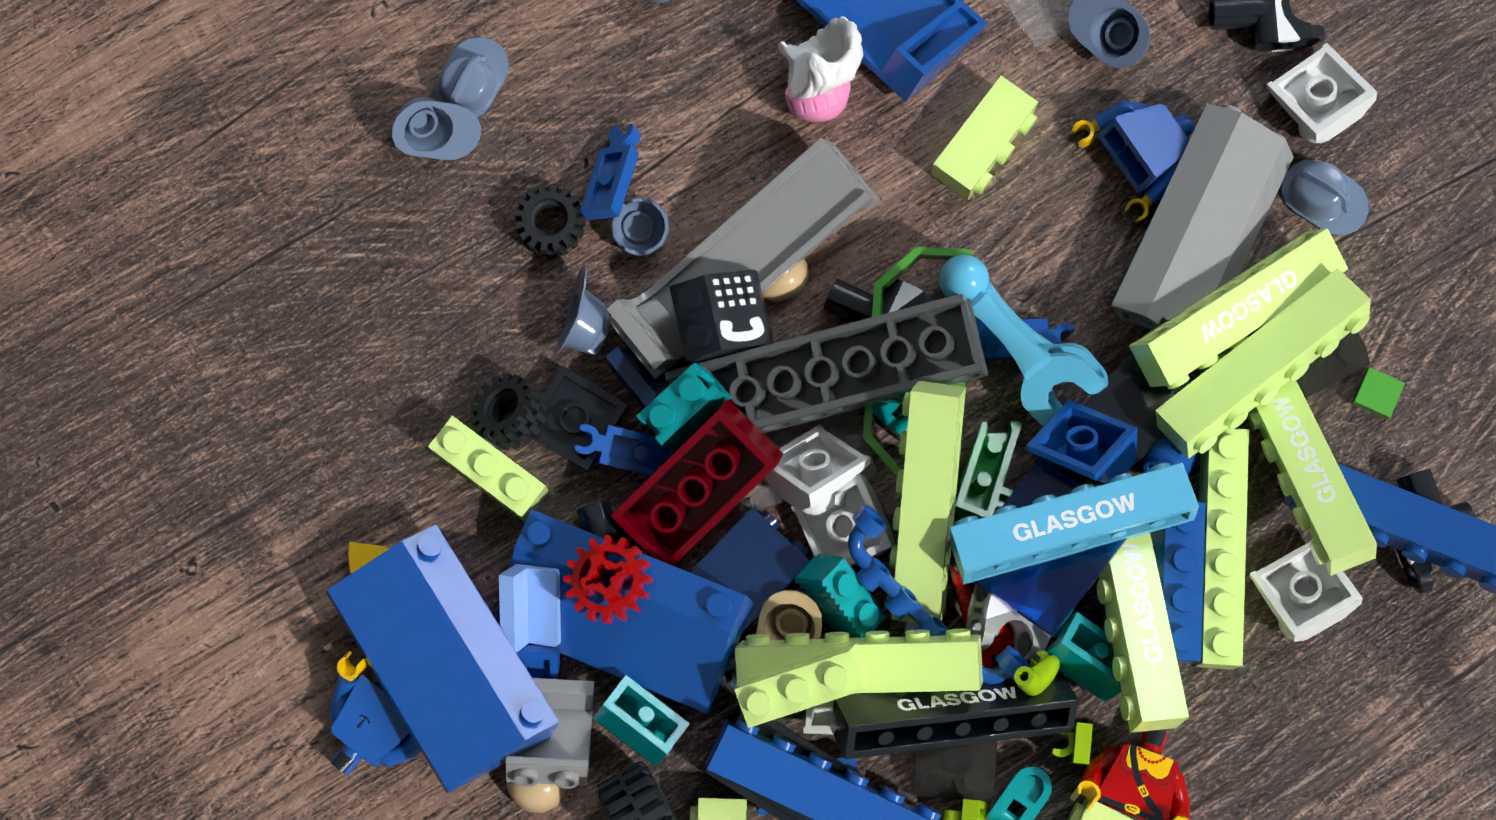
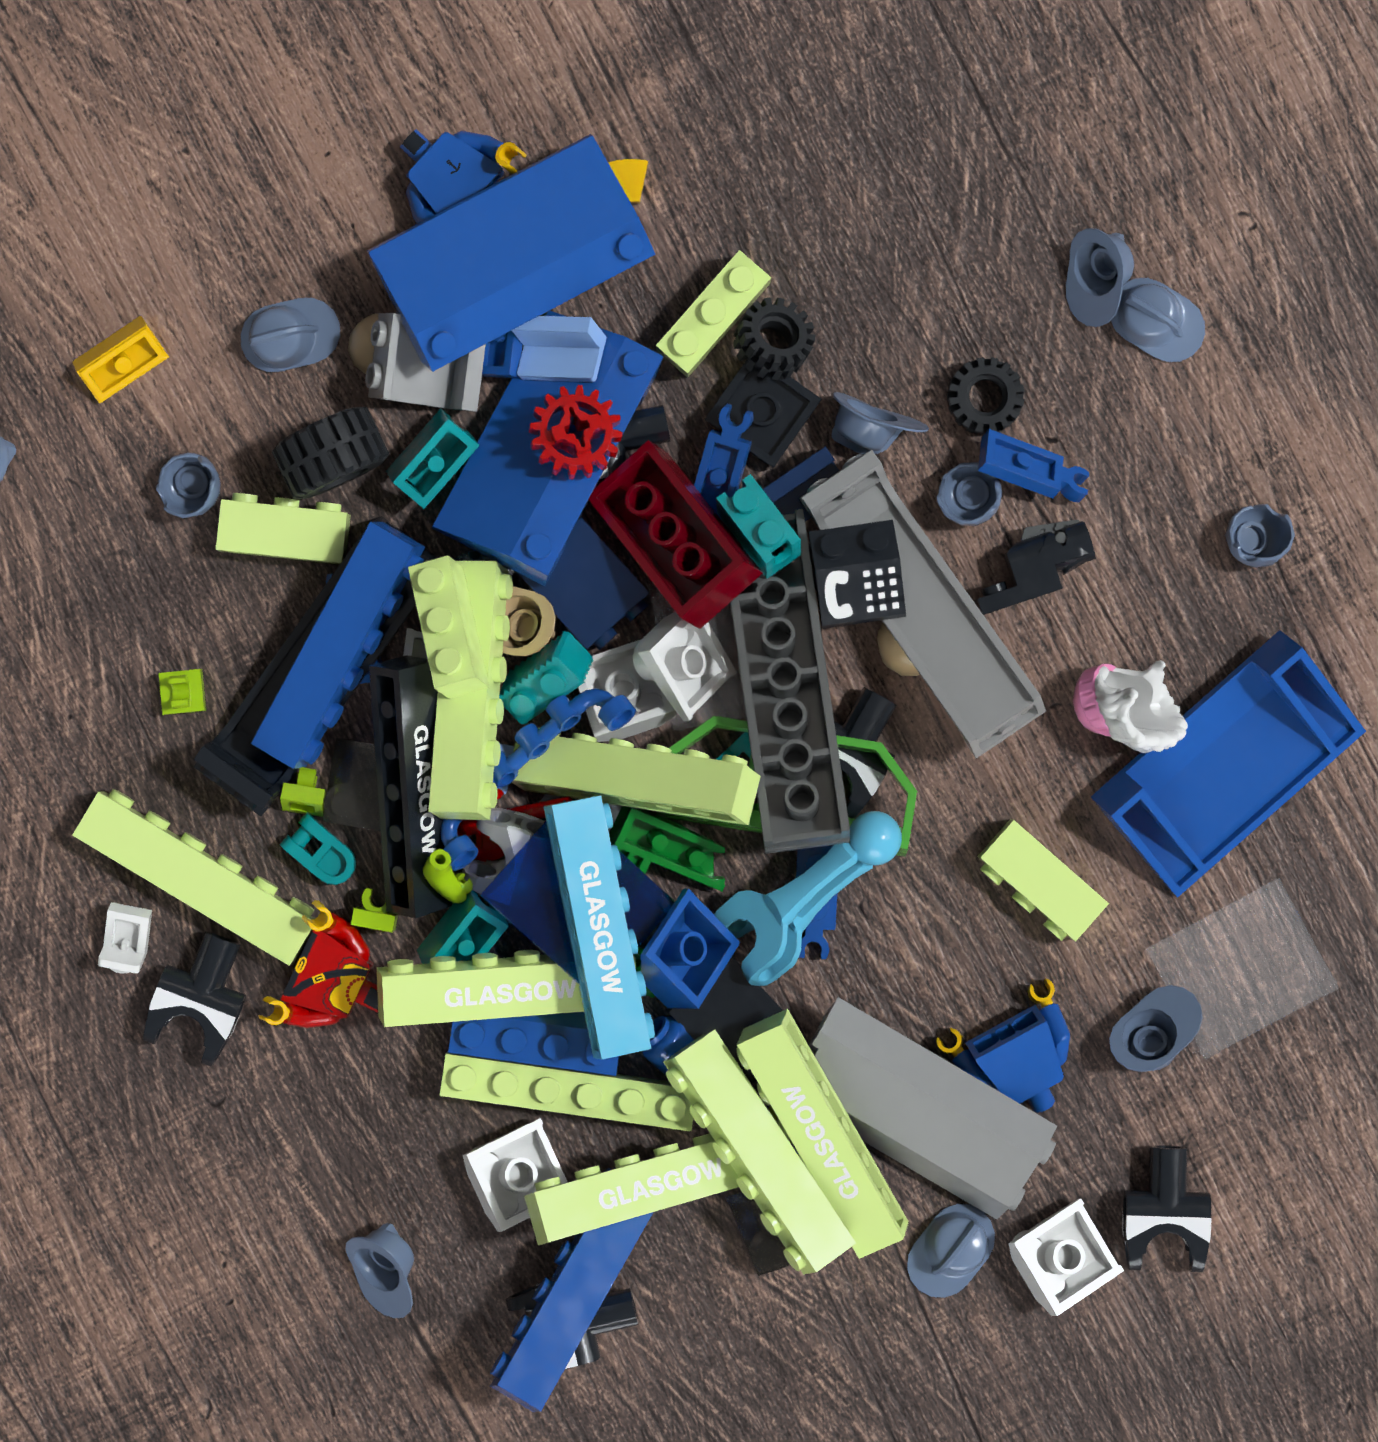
camera: 90 degrees right, 10 degrees up
(698, 163) = (1036, 563): none -> black plate
(1378, 393) = (726, 1281): bright green tile -> none
(1409, 710) = (382, 1269): none -> sand blue piece

